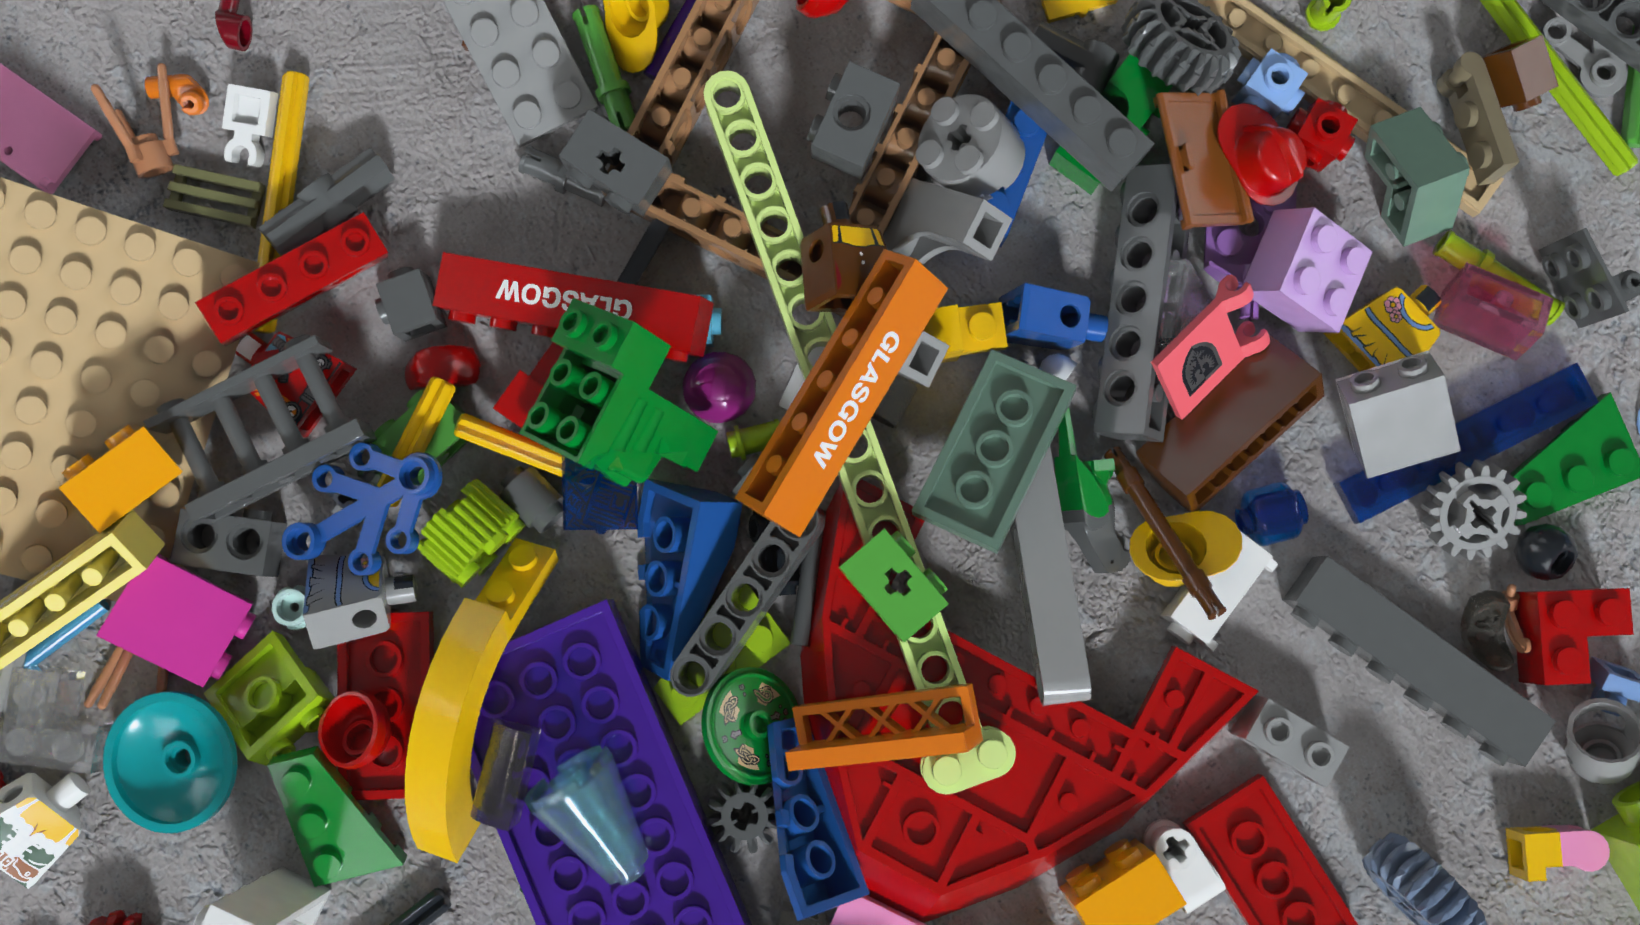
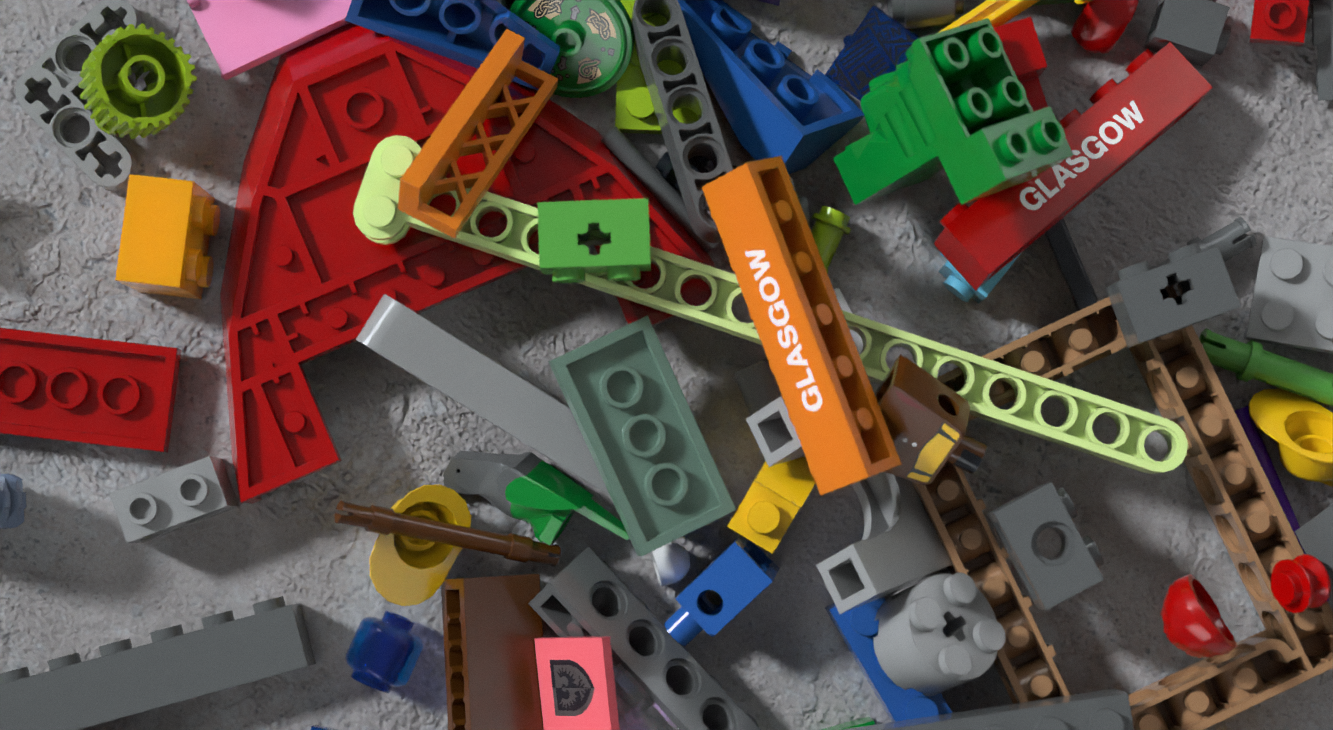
camera: 130 degrees right, 0 degrees up
(719, 387) = (896, 246): magenta piece -> none
(1185, 863) = (141, 317): white piece -> none
(1187, 616) = (351, 544): white brick -> none

